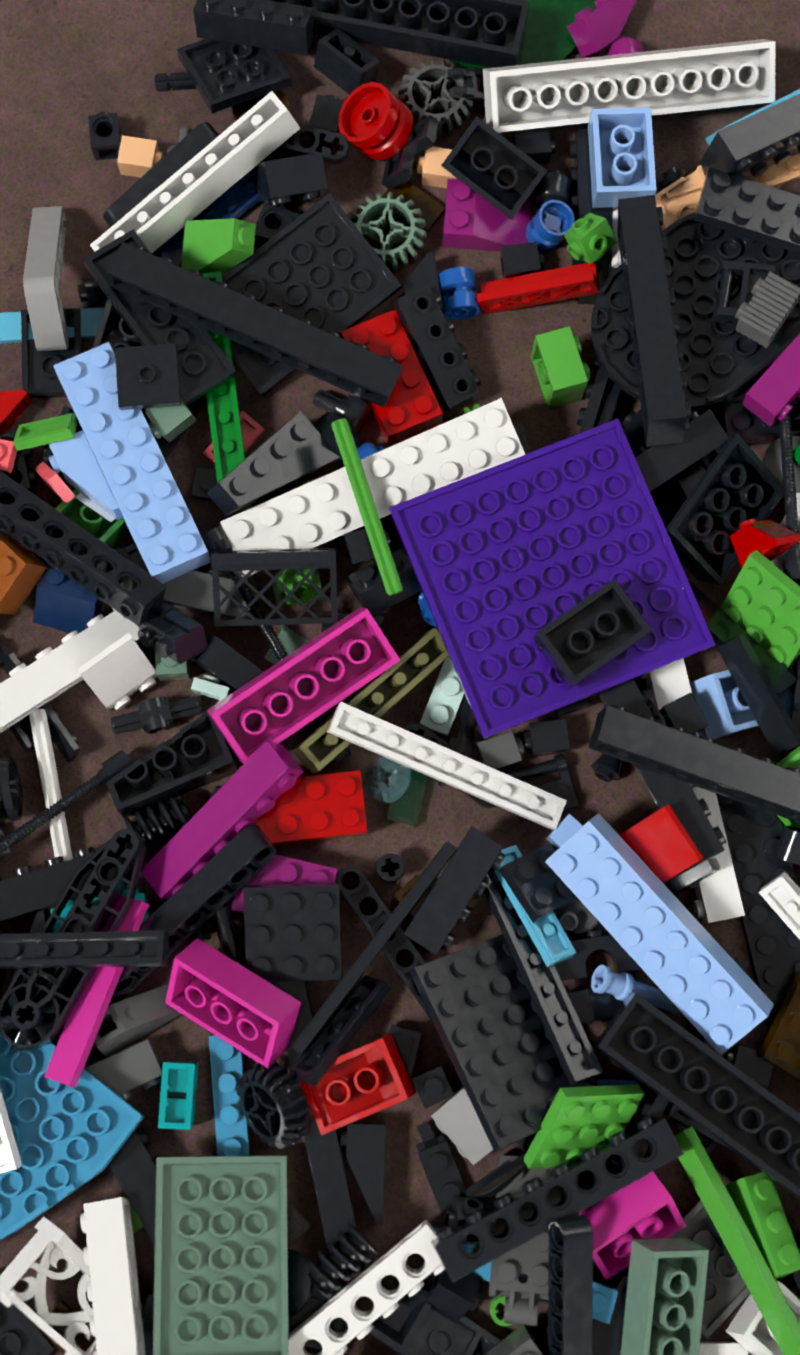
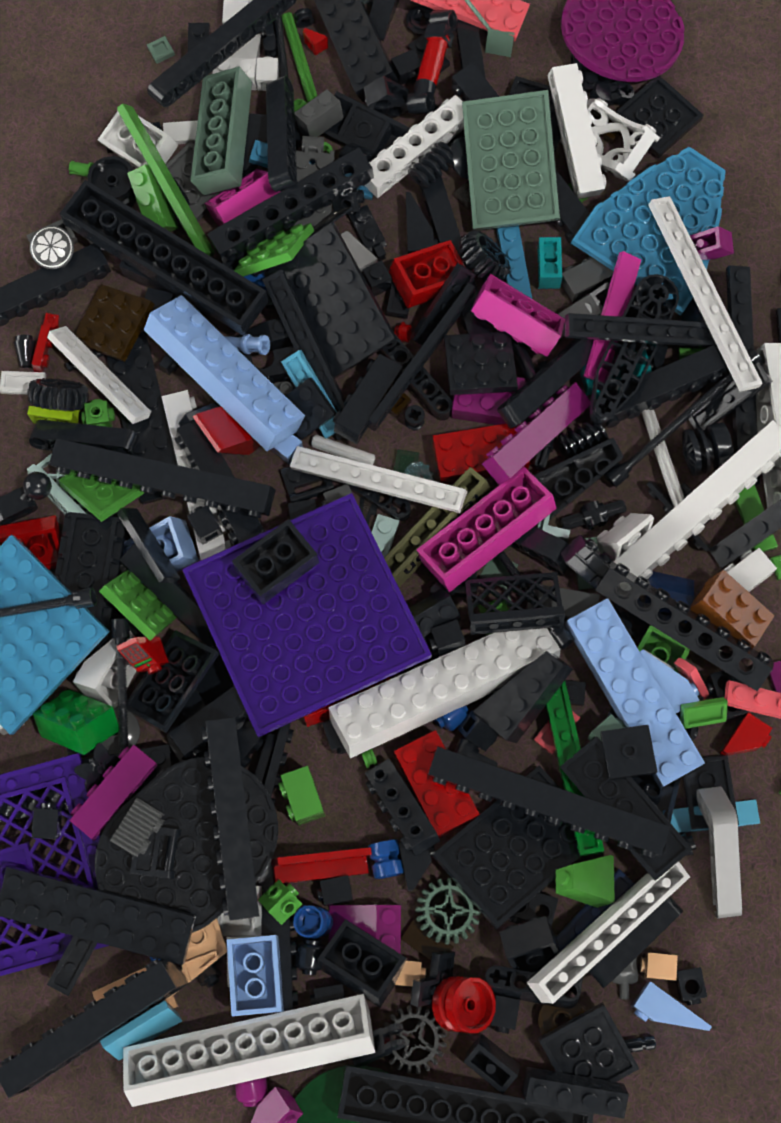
camera: 175 degrees left, 5 degrees down
(137, 109) = (660, 1007): none -> light blue slope
(367, 507) = (449, 658): bright green axle -> none
(398, 1001) = (403, 332): none -> red plate
(491, 828) = (342, 450): none -> white axle

